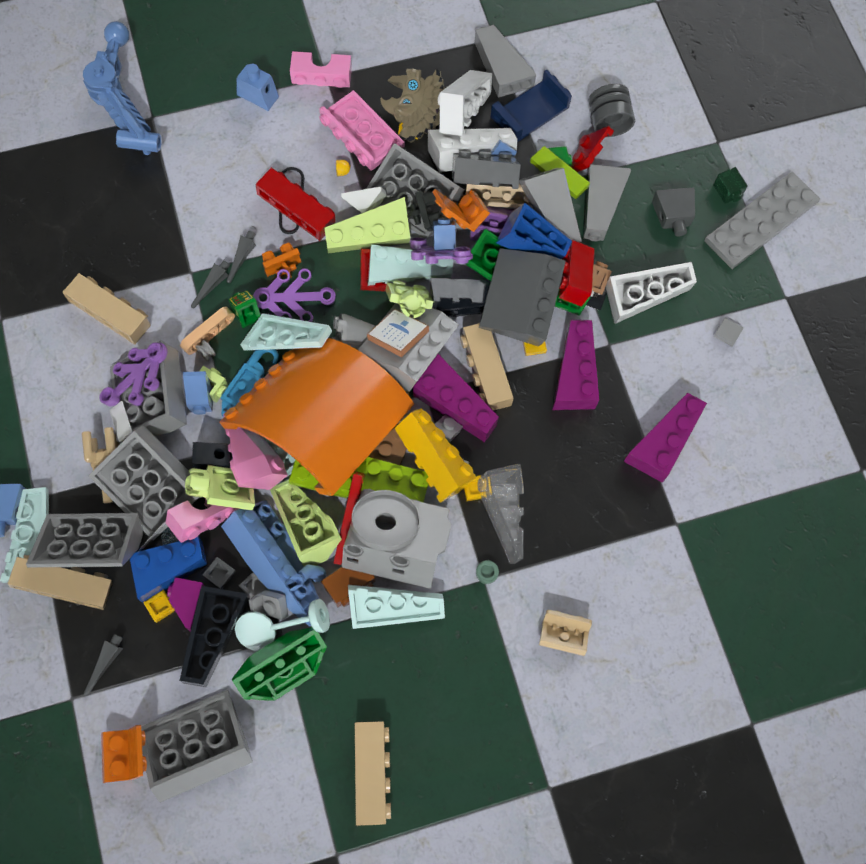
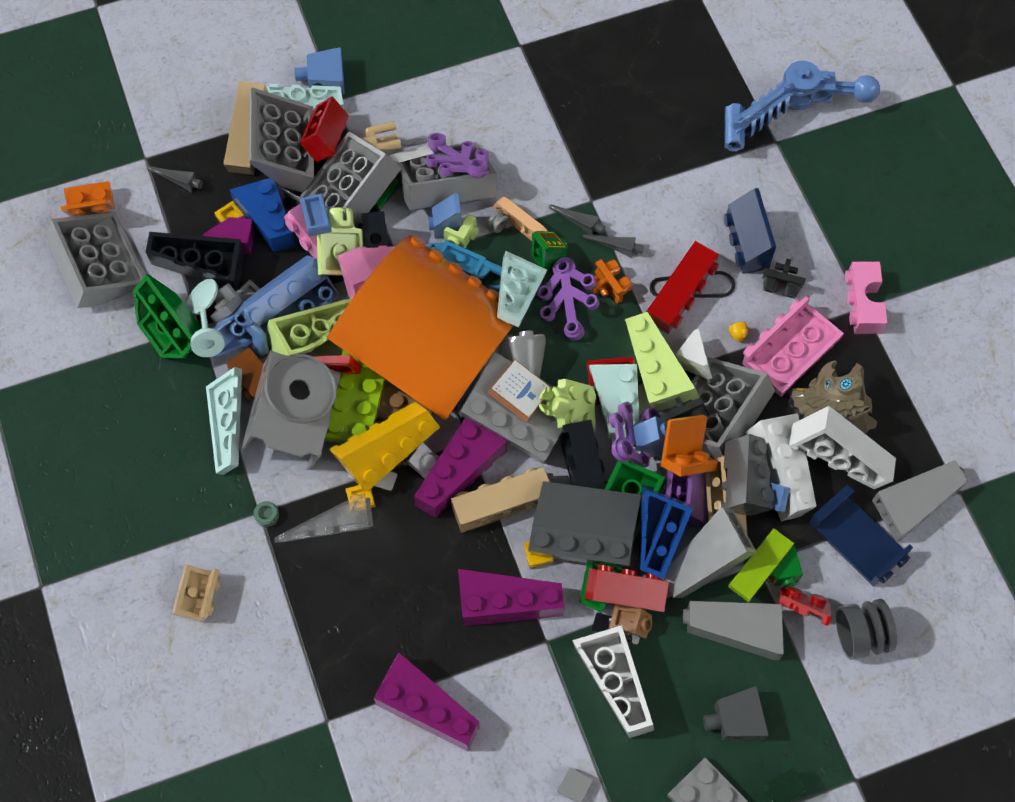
camera: 90 degrees right, 5 degrees down
(79, 501) = (324, 129): none -> red brick
(107, 308) = (536, 128): tan brick -> none
(194, 501) = (315, 215): none -> medium blue tile
(219, 573) = (261, 261): dark grey plate -> none
(249, 141) = (750, 232): none -> dark blue slope
(257, 87) = (829, 228): medium blue torso -> none
(302, 121) = (792, 282): none -> pearl dark grey hips
(370, 773) = (61, 412): tan brick -> none

